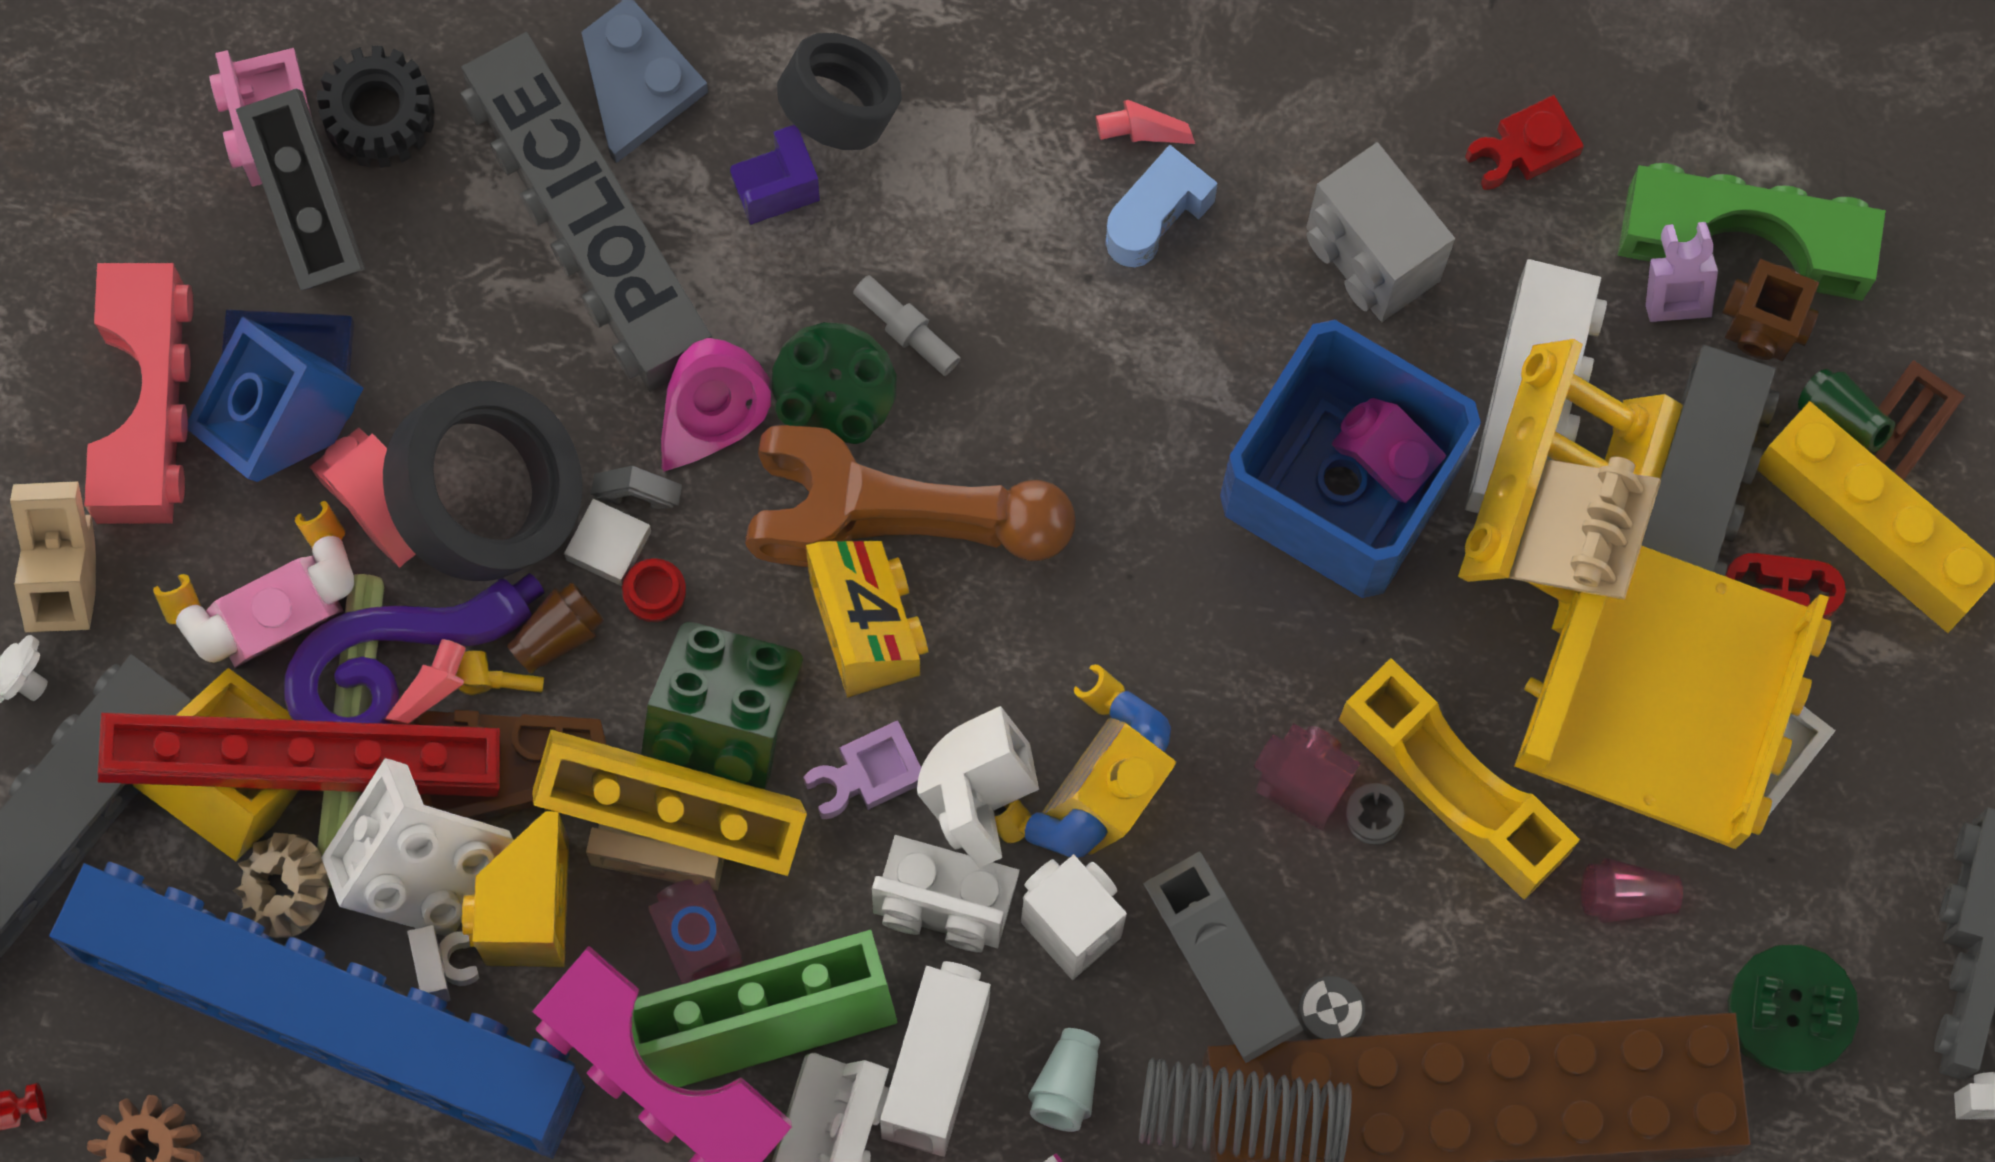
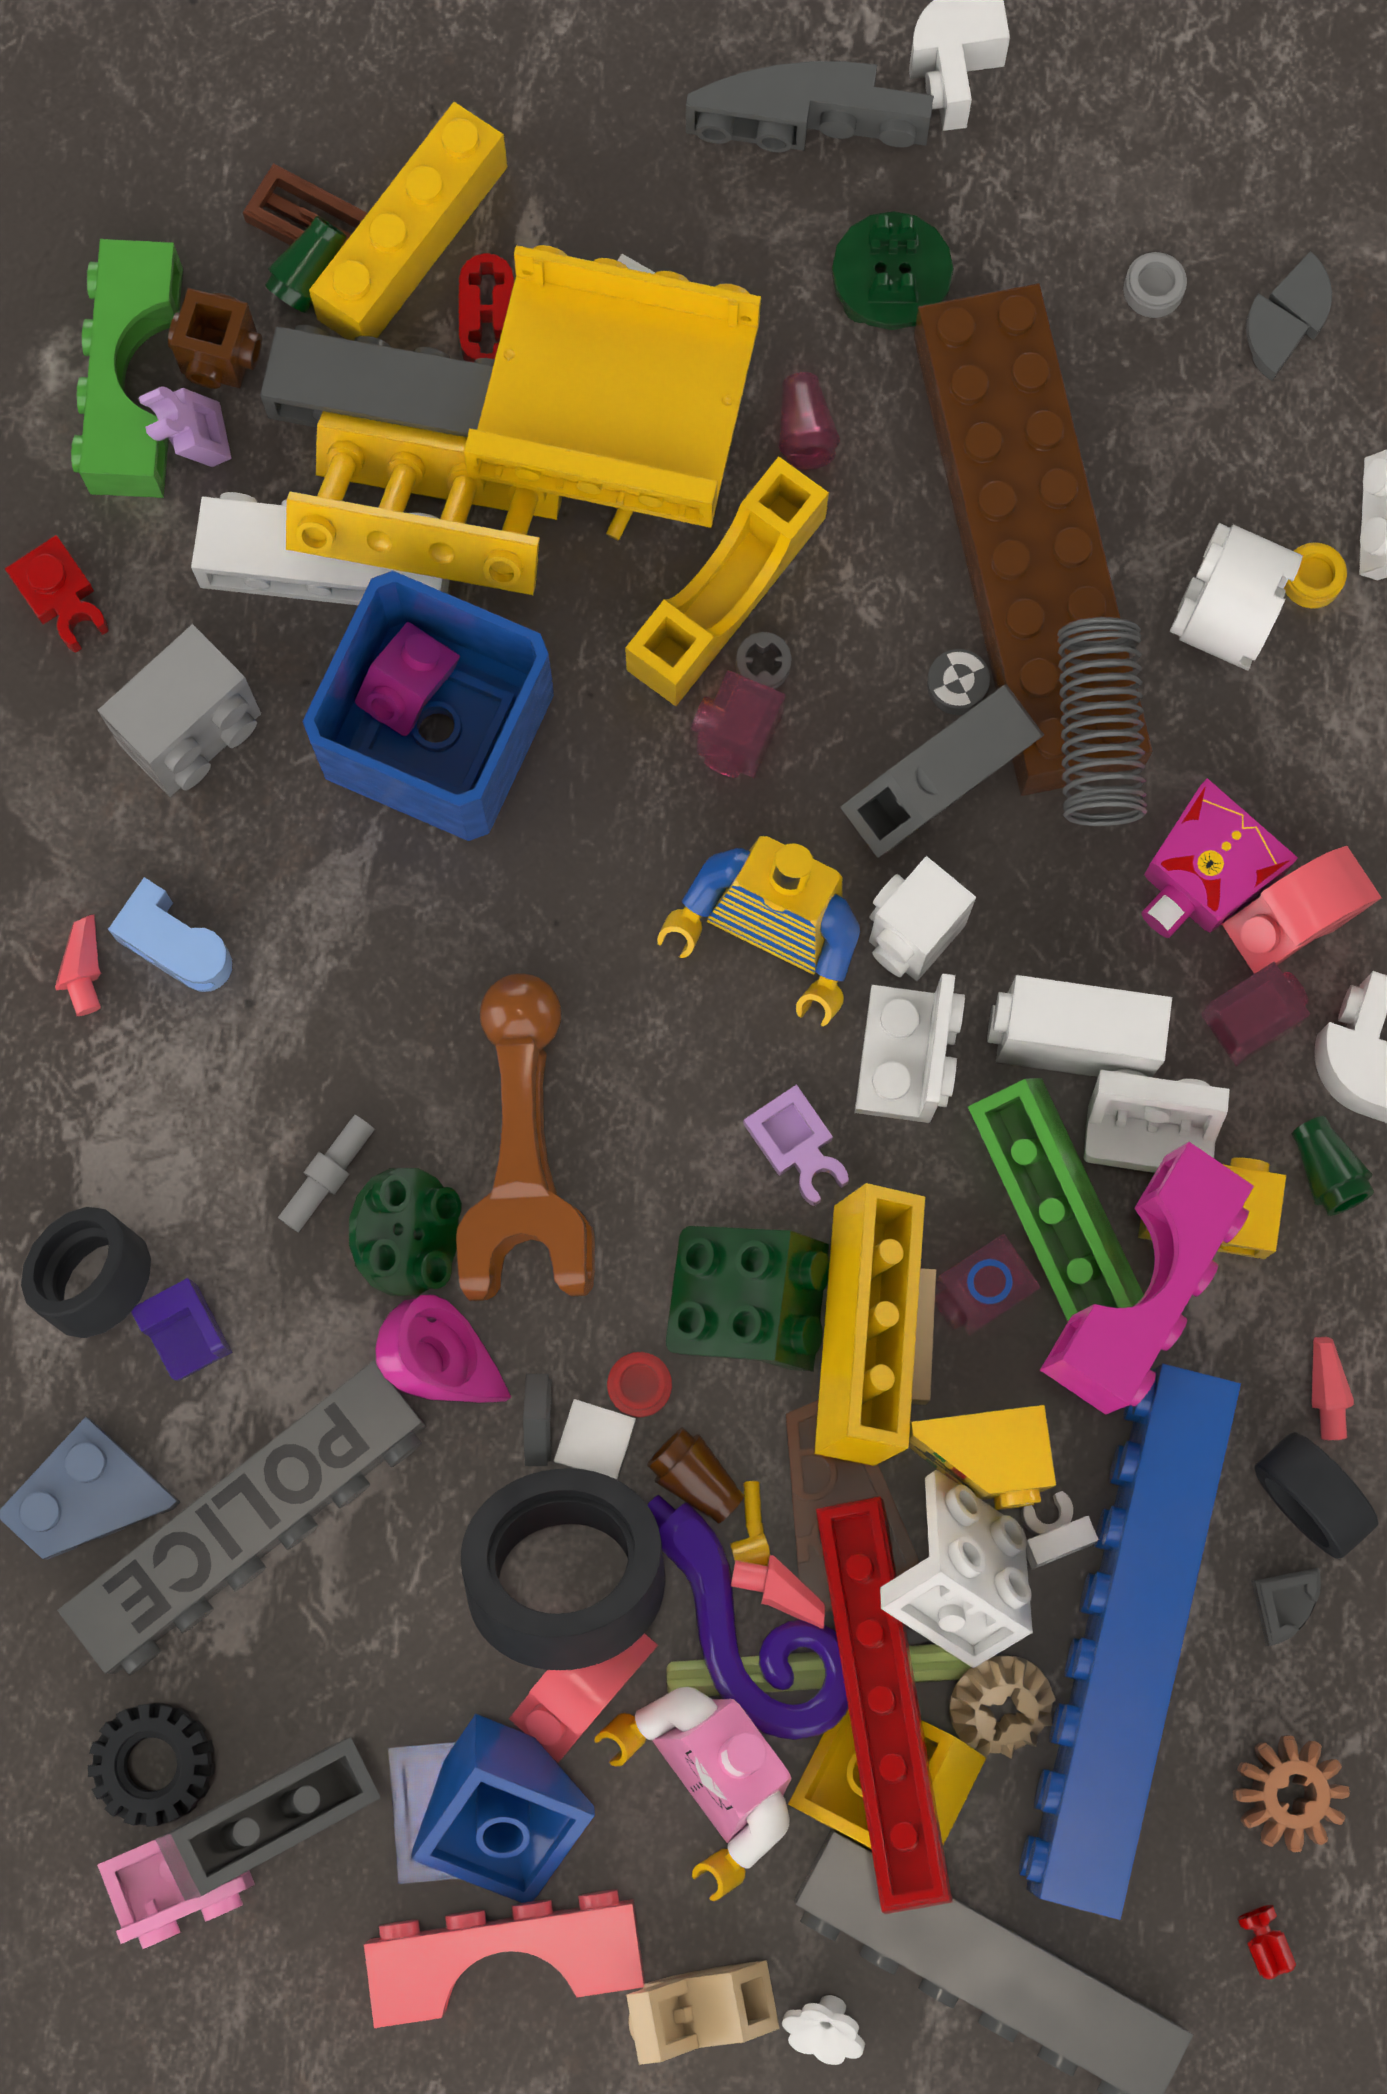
camera: 95 degrees left, 5 degrees up
(864, 614) = (644, 1164): yellow slope -> none
(971, 776) = (789, 1039): white brick -> none
(1067, 1082) = (1069, 912): light aqua cone -> none
(1586, 527) = (482, 466): tan hinge -> none

